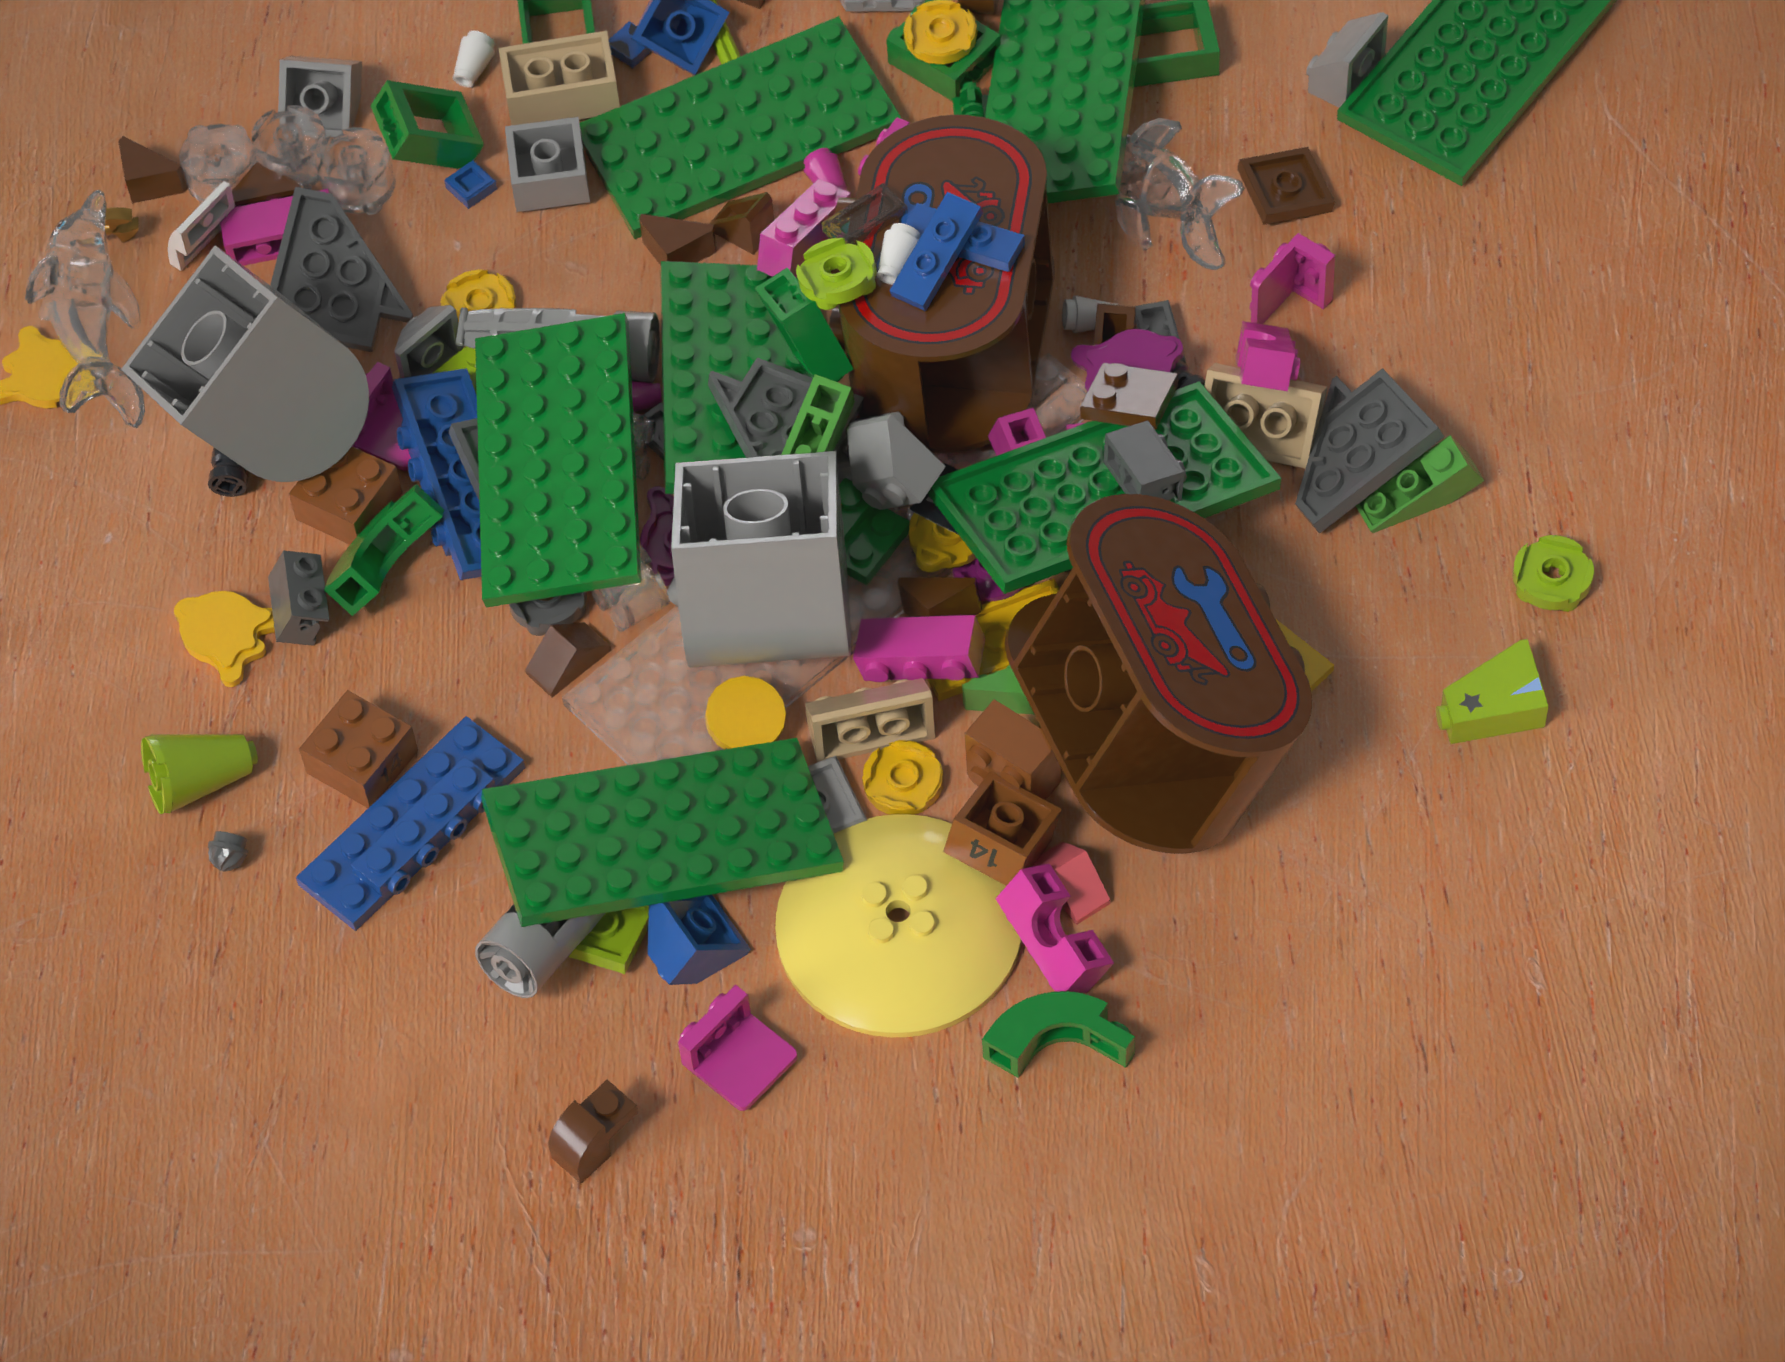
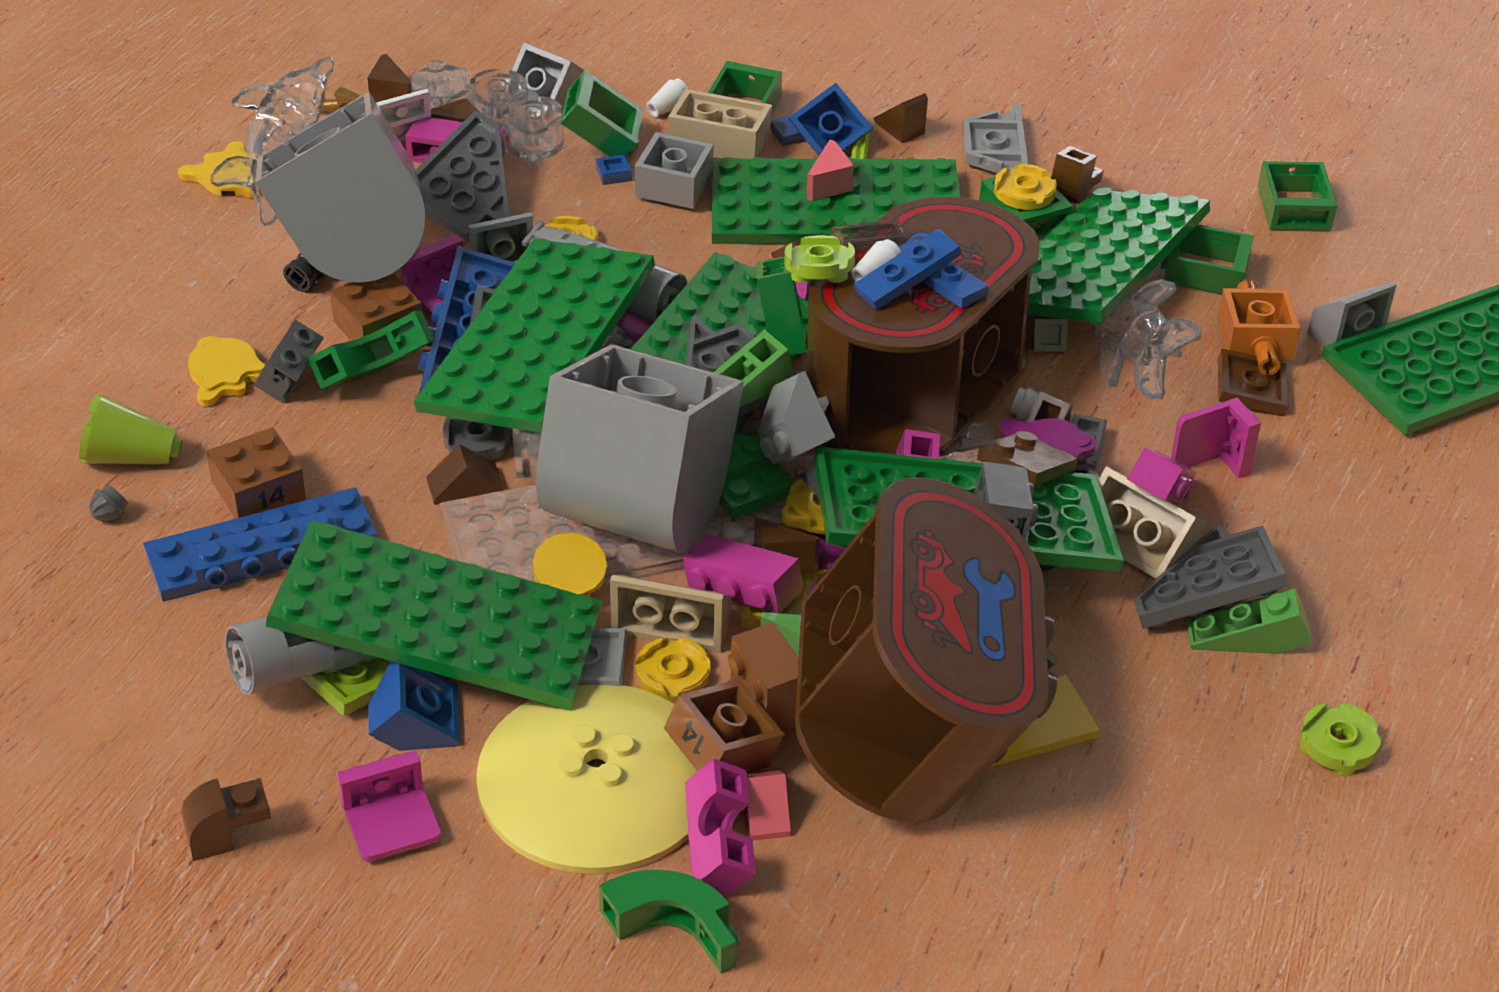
camera: 20 degrees right, 15 degrees down
(677, 239) = (741, 244): reddish brown slope -> none
(727, 100) = (830, 173): none -> coral slope
(1063, 217) = (1049, 334): none -> olive tile
(1263, 112) = (1259, 324): none -> orange brick
(1495, 698) = (1231, 811): lime slope -> none

